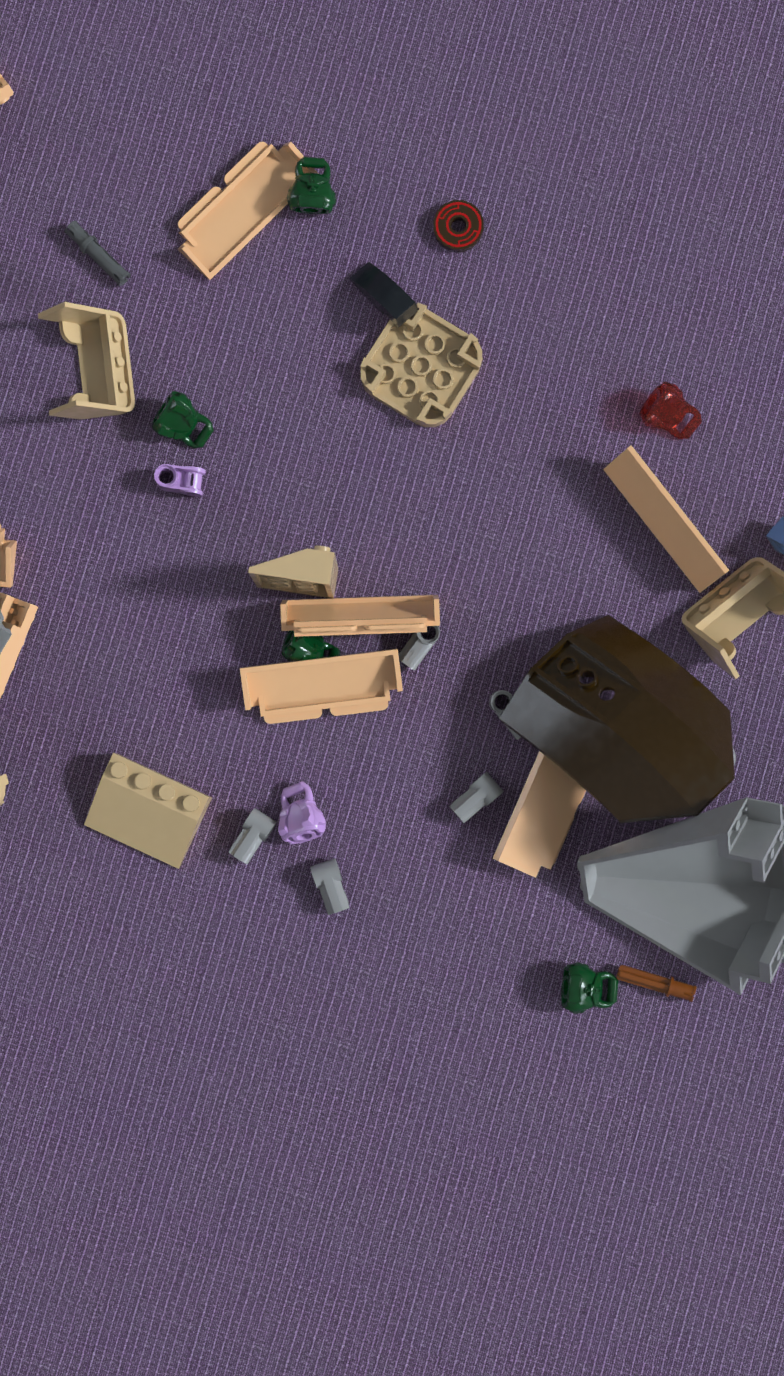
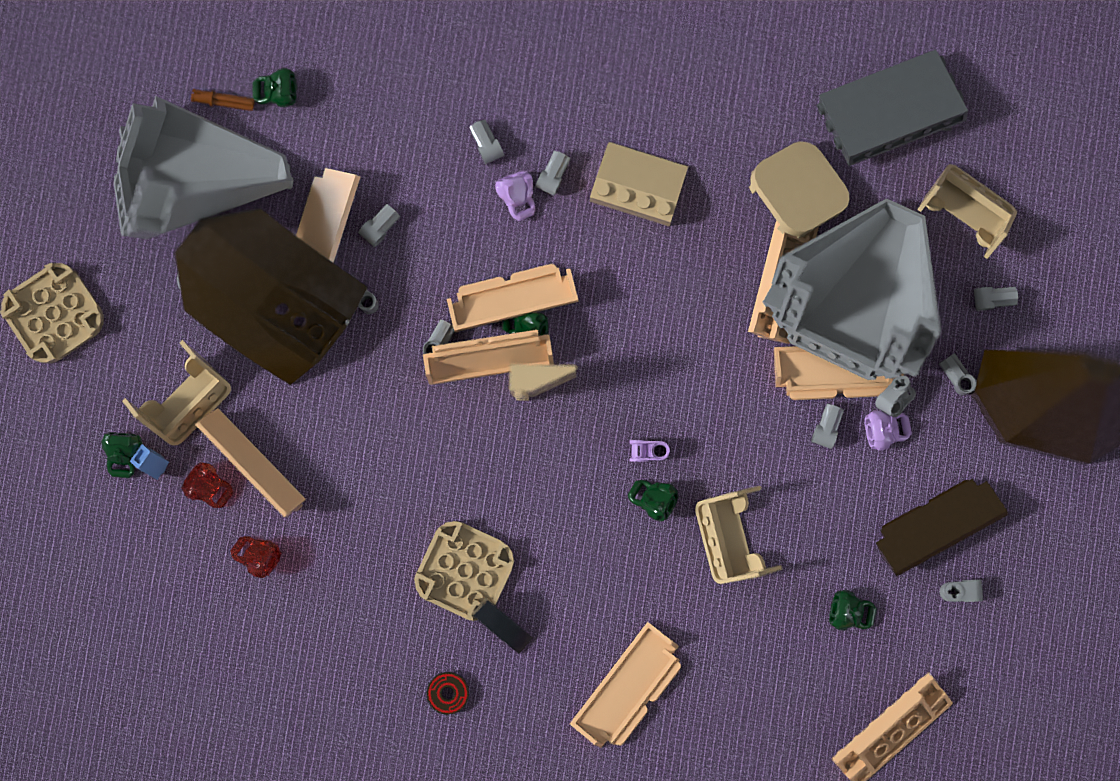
camera: 175 degrees right, 0 degrees up
(89, 245) = (751, 638): dark grey pin -> none
(312, 191) = (572, 706): dark green piece -> none
(725, 505) = (204, 484): none -> clear red piece

